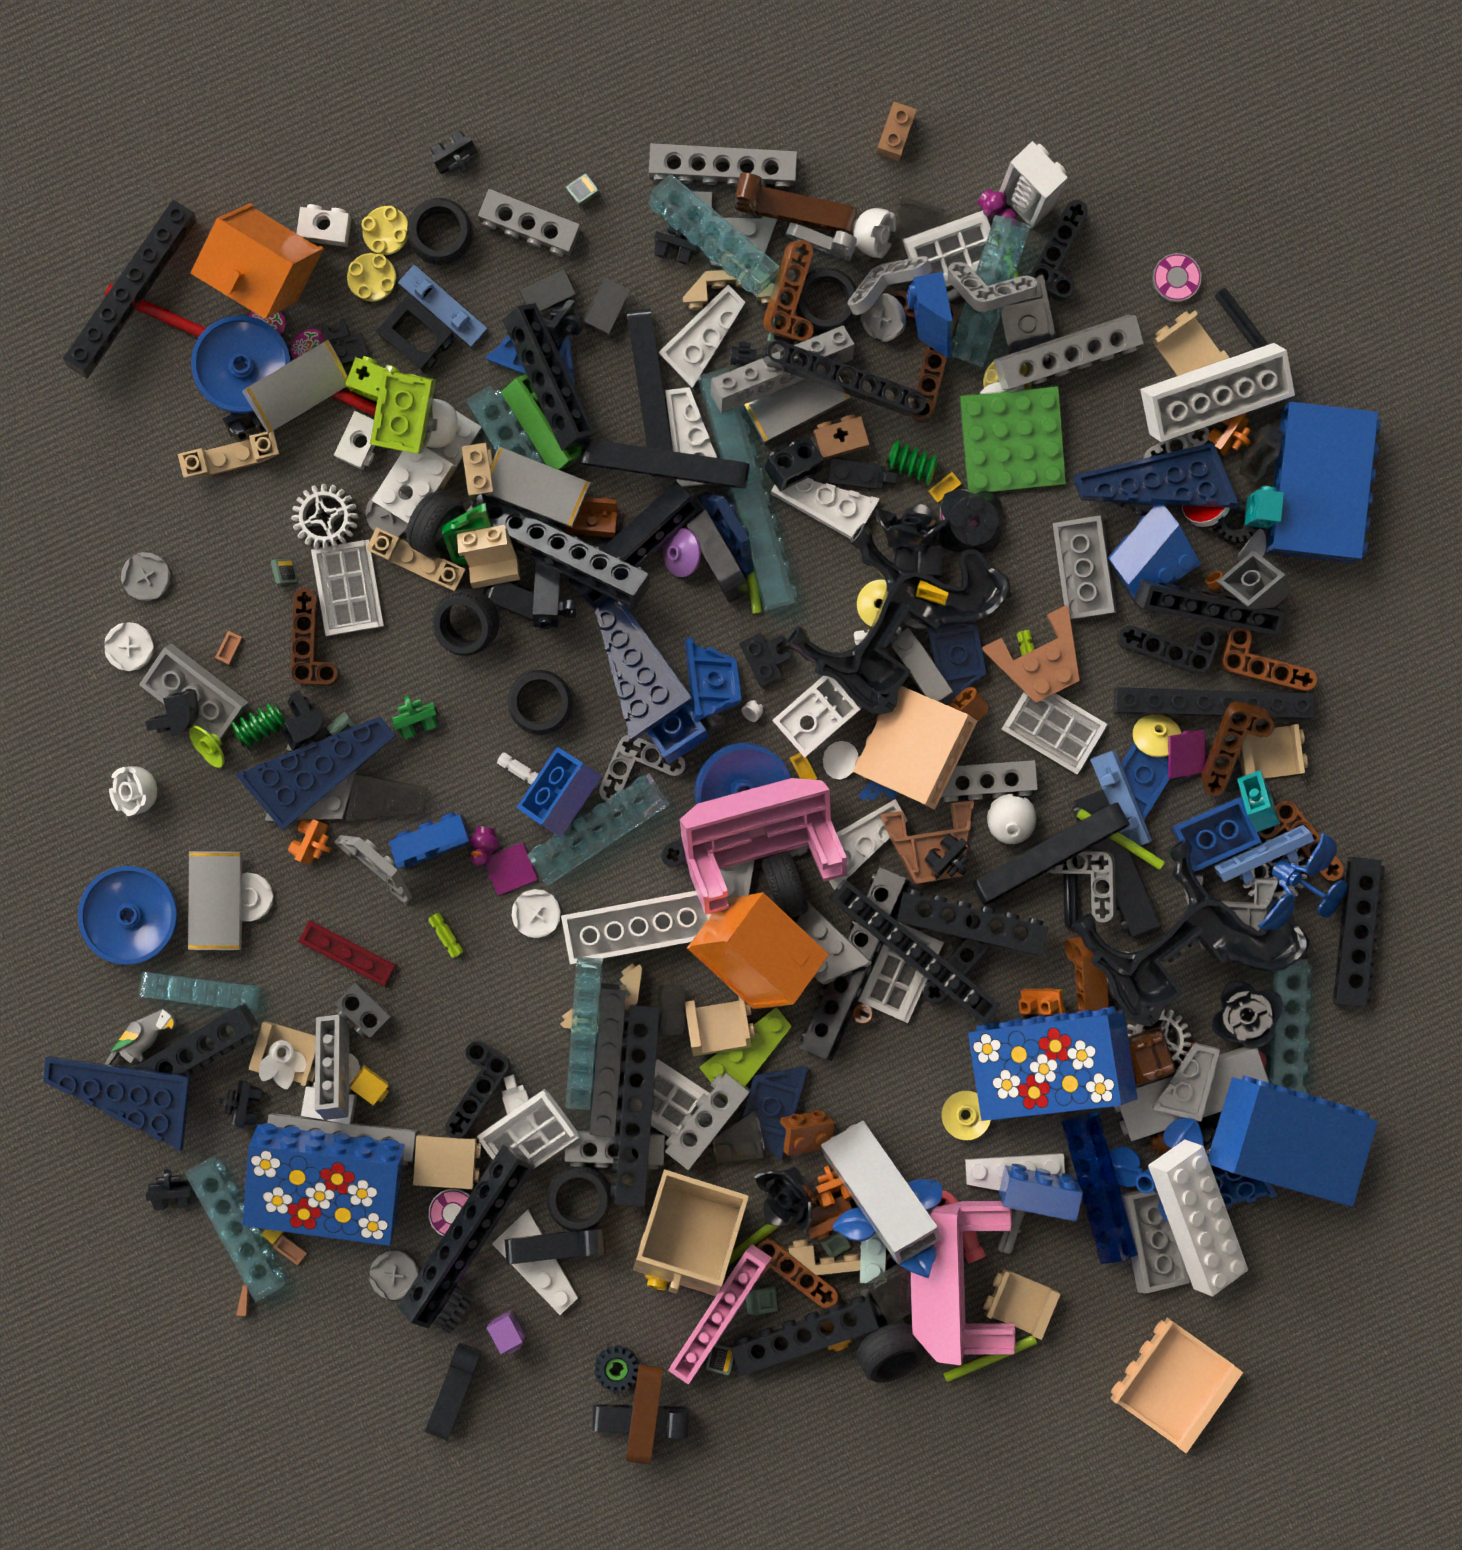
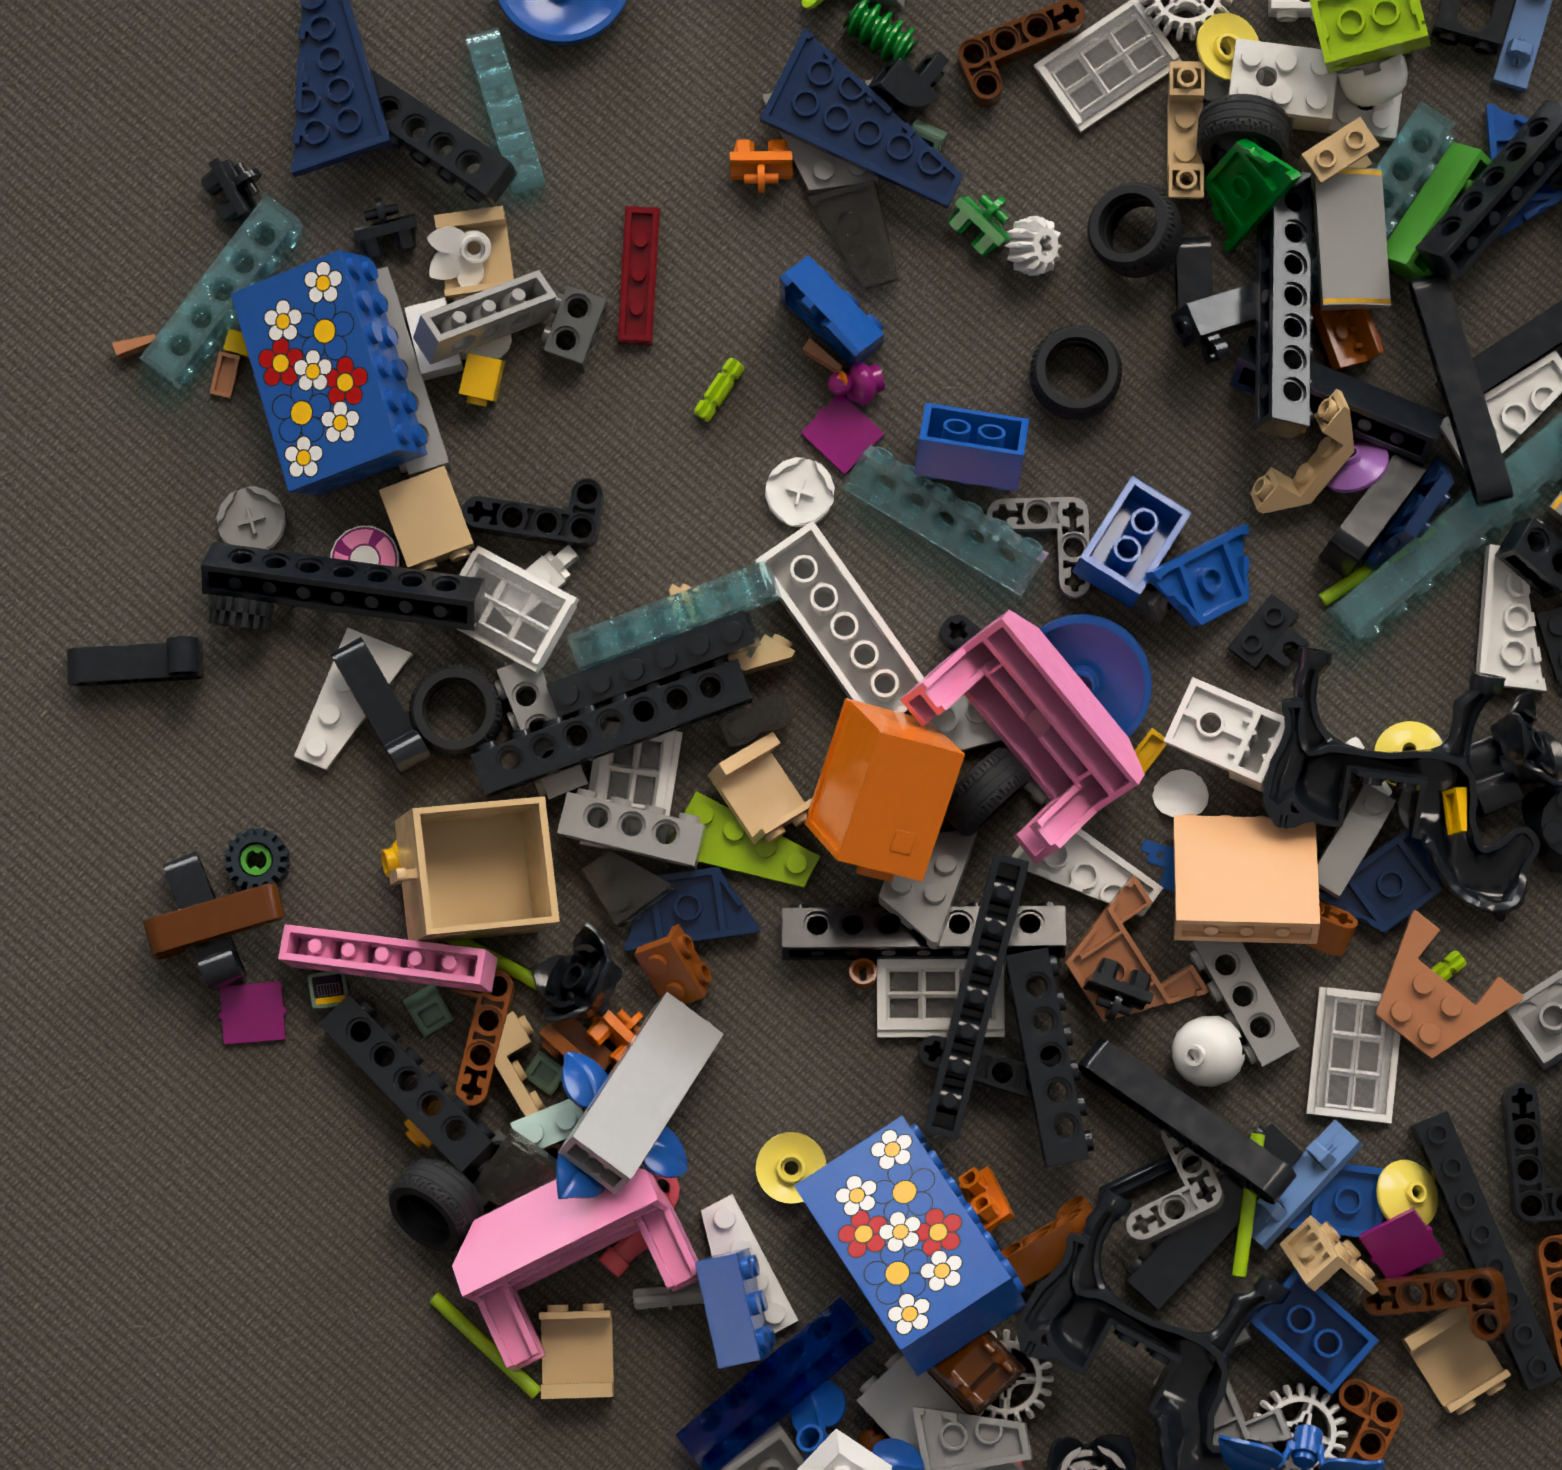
camera: 70 degrees right, 5 degrees down
(141, 1036) = (415, 63): light grey animal -> none
(215, 900) = (630, 77): light grey slope -> none
(256, 897) = (654, 119): white tile -> none
(362, 502) = (1221, 31): none -> light yellow dish
(382, 867) = (772, 259): light grey wing -> none
(445, 691) = (1033, 245): none -> white gear
(448, 863) = (819, 355): none -> nougat piece
(489, 556) = (1235, 218): tan panel -> none
(506, 1332) = (241, 695): medium lavender brick -> none
(517, 768) = (976, 381): white axle -> none
(641, 675) = (1173, 480): wing -> none
(677, 606) = (1279, 492): none -> tan slope
(712, 1413) = (252, 1013): none -> magenta piece
(752, 710) = (1191, 651): white hinge -> none
(1171, 807) = (1320, 1254): none -> tan bracket
(1258, 801) = (1384, 1365): teal brick -> none
(1282, 845) = (1340, 1423): medium blue hinge -> none

